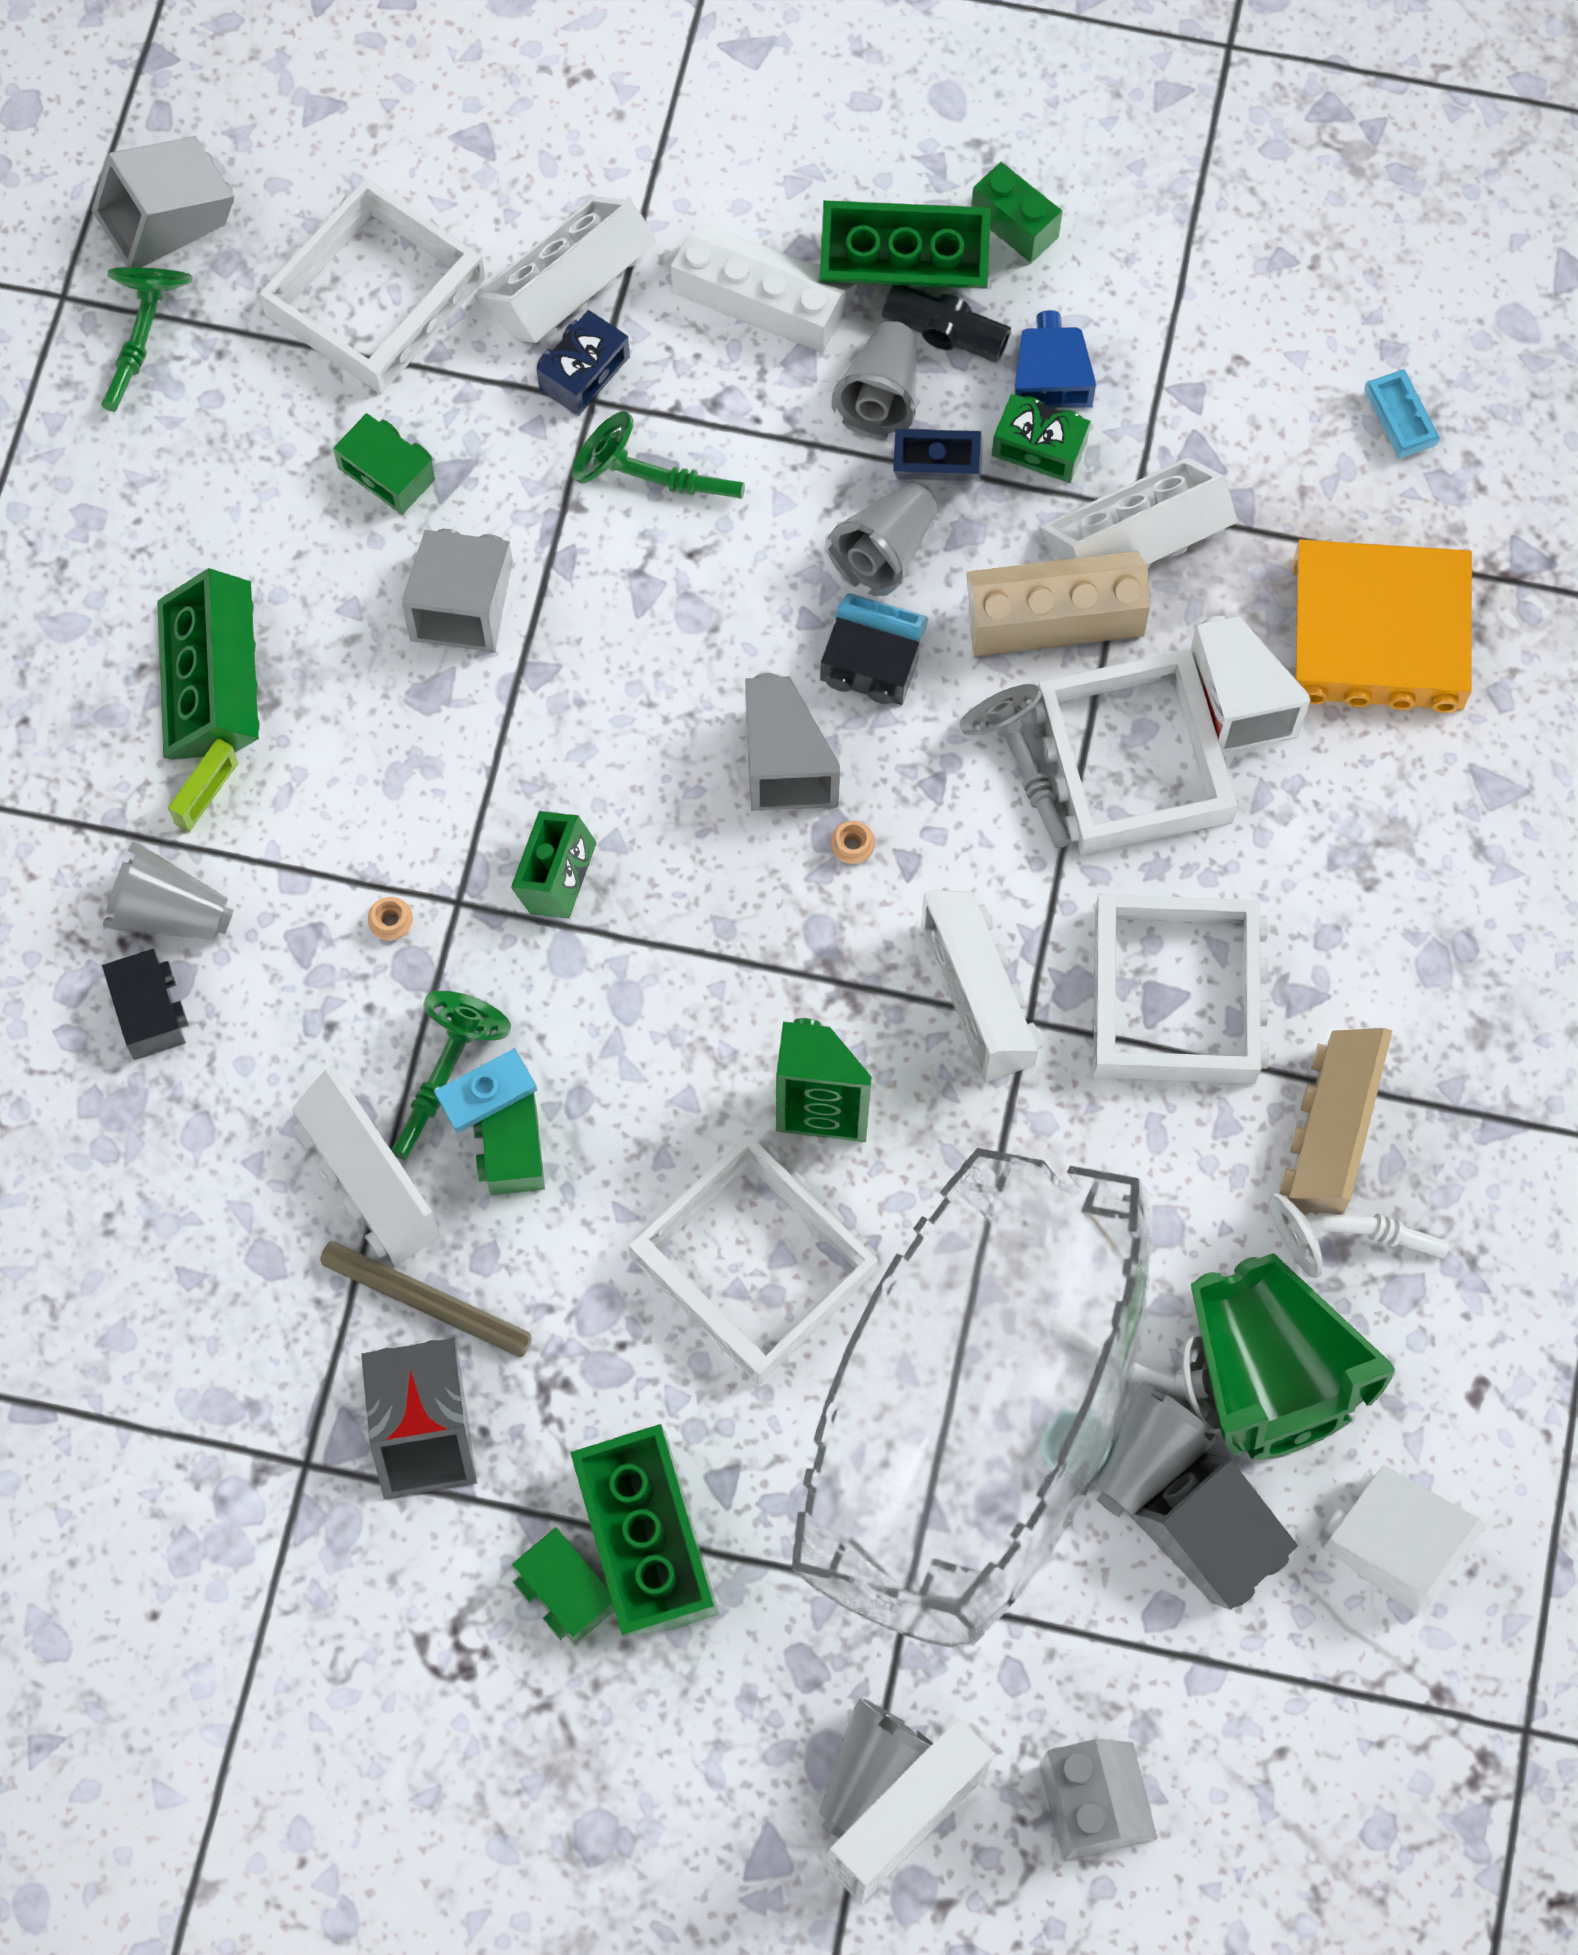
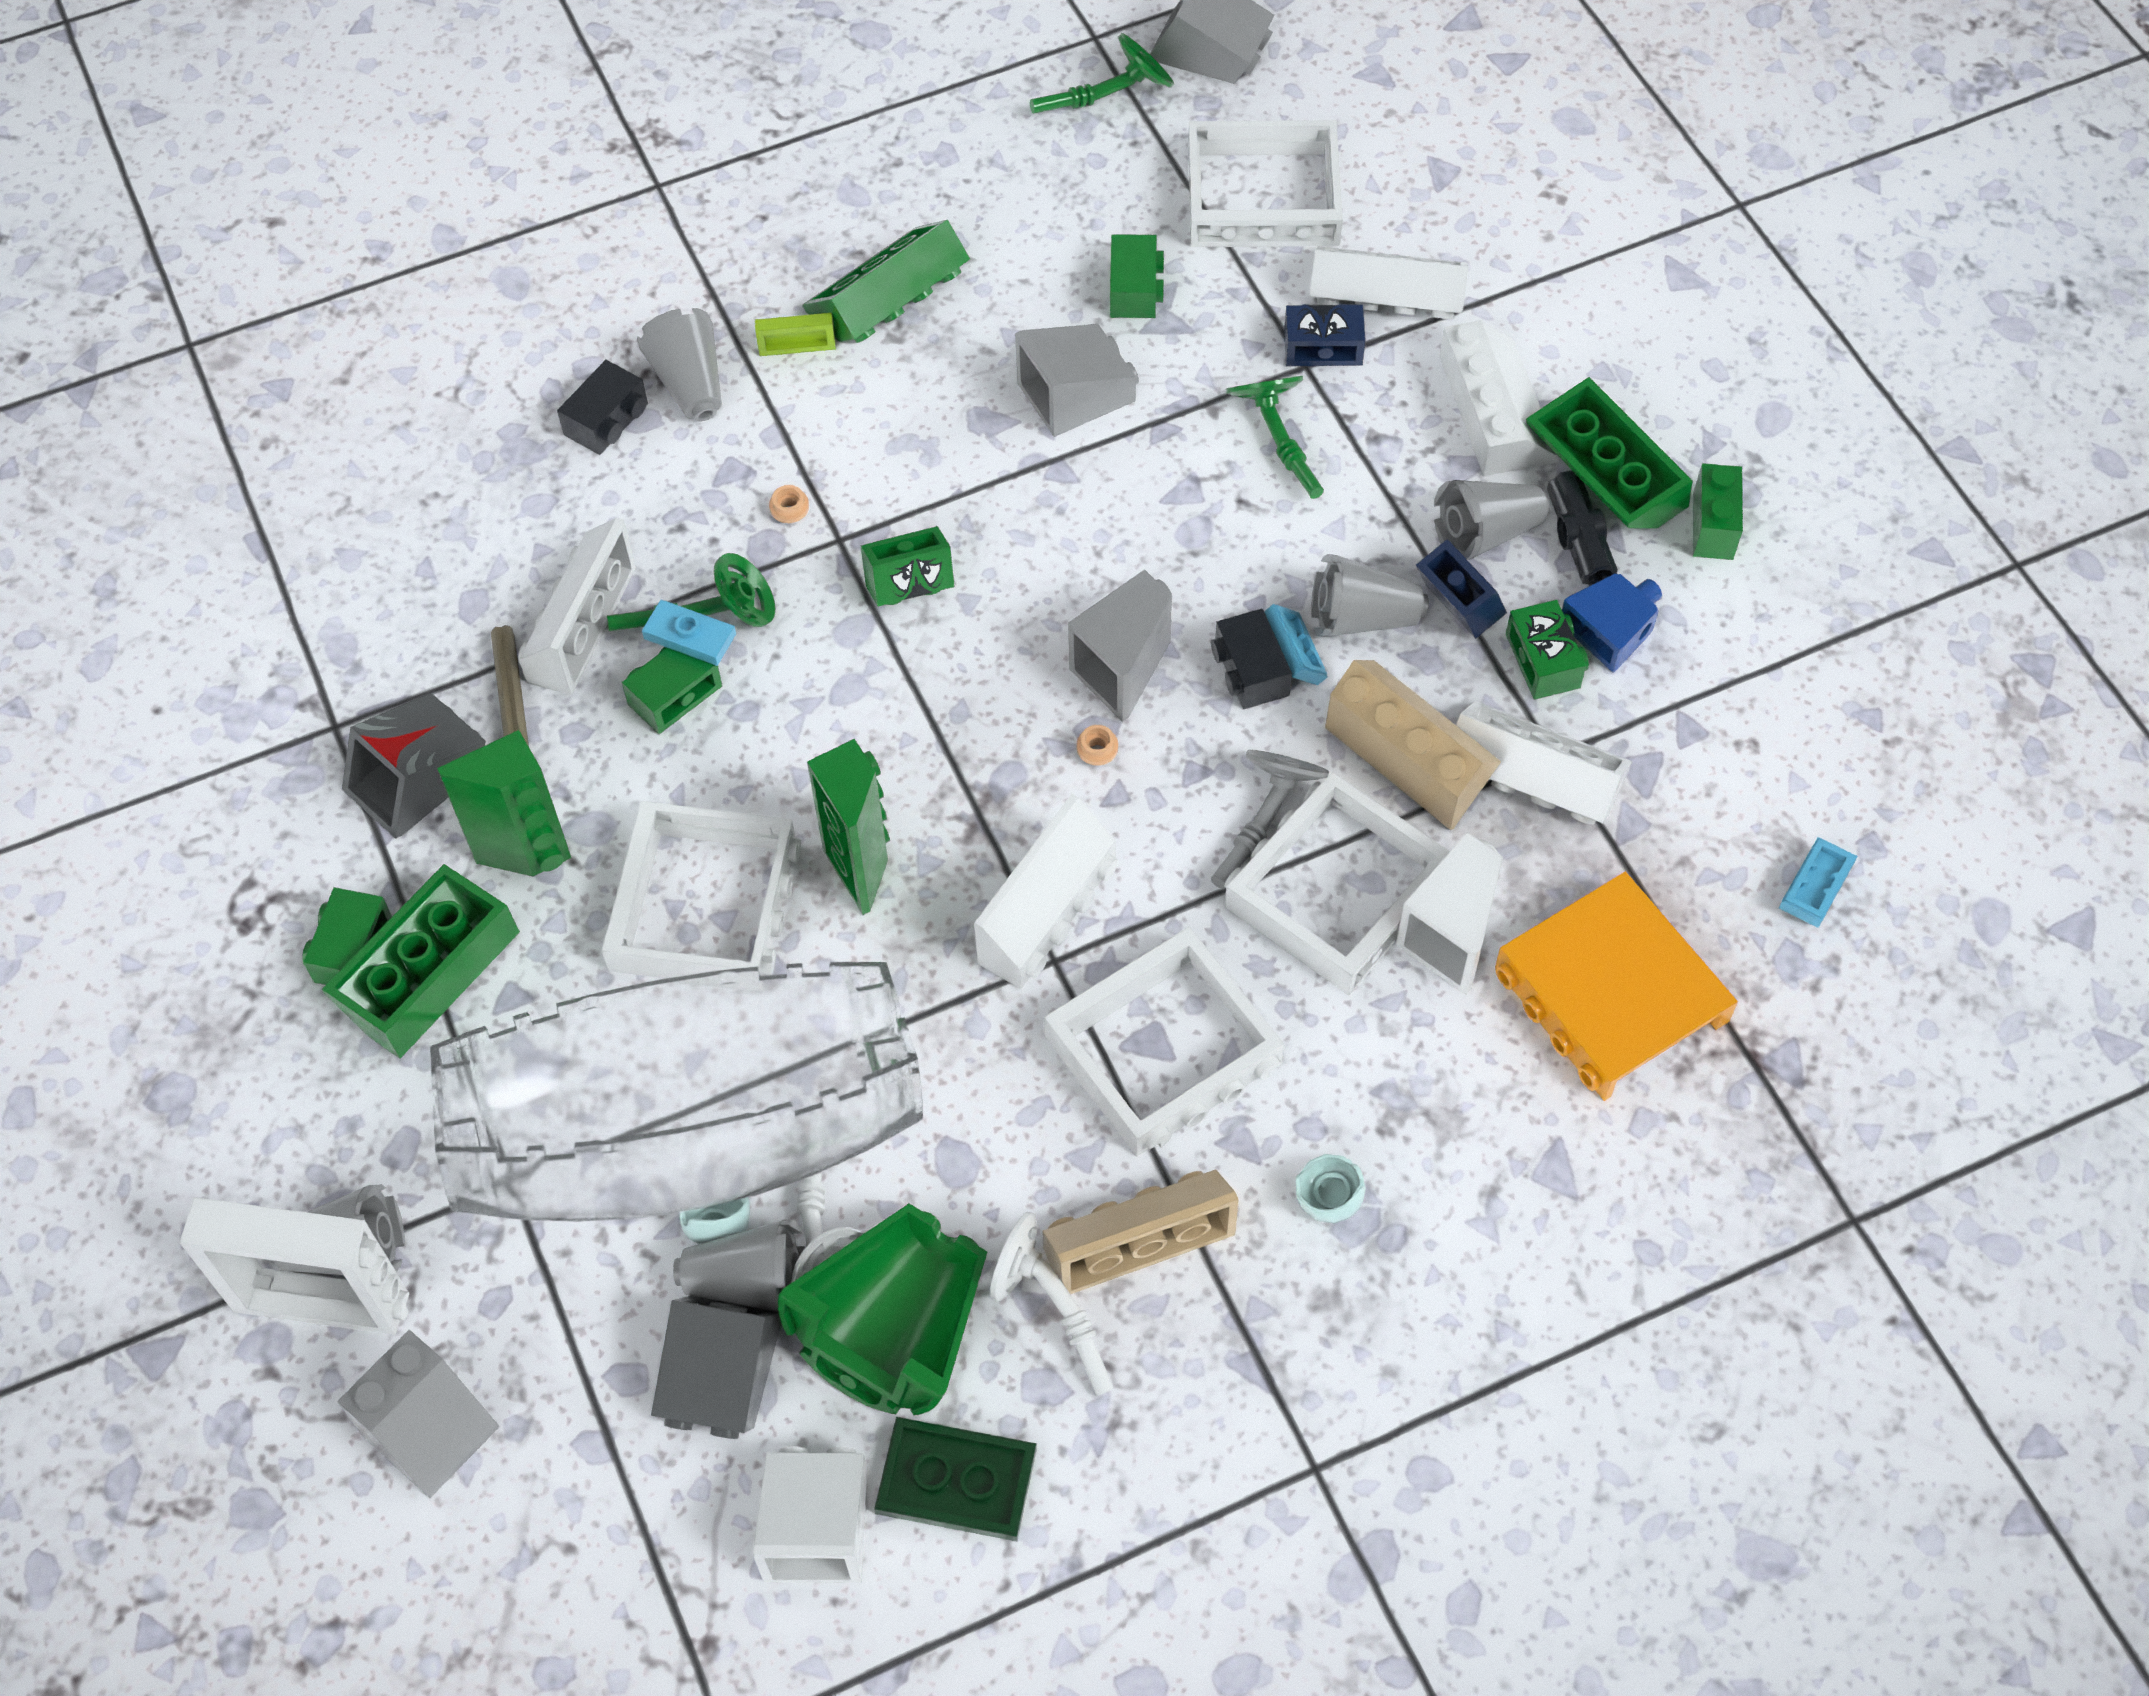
camera: 55 degrees right, 10 degrees down
(577, 1355) = (506, 807): none -> green slope
(1402, 959) = (1330, 1188): none -> light aqua hair
(1436, 1411) = (956, 1479): none -> dark green tile

